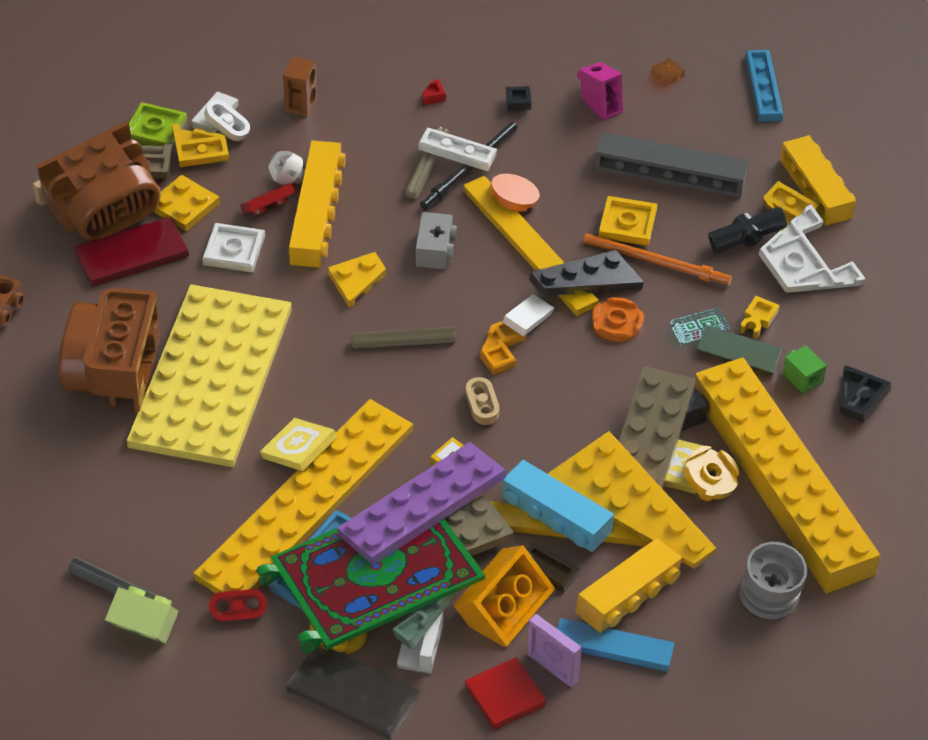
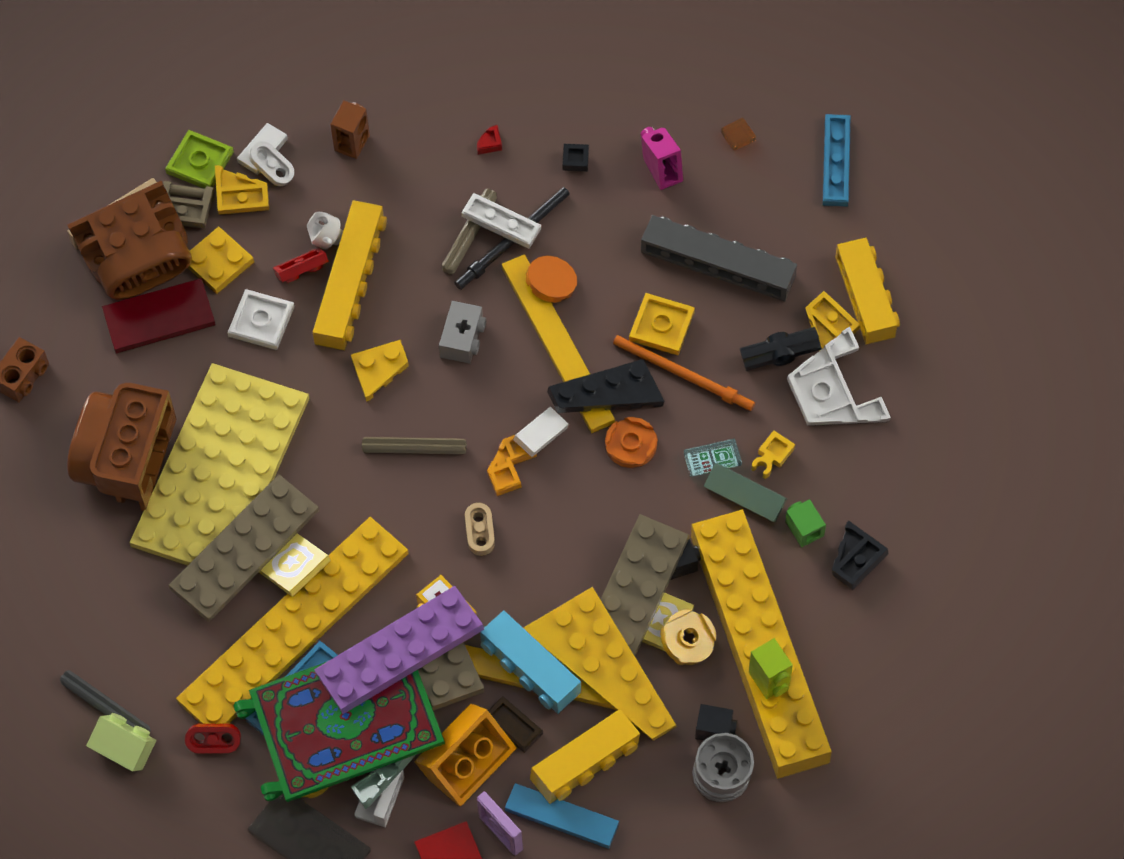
camera: 10 degrees right, 15 degrees up
(245, 433) = (243, 548): none -> dark tan plate
(748, 539) = (714, 721): none -> black brick
(807, 478) = (770, 669): none -> lime brick

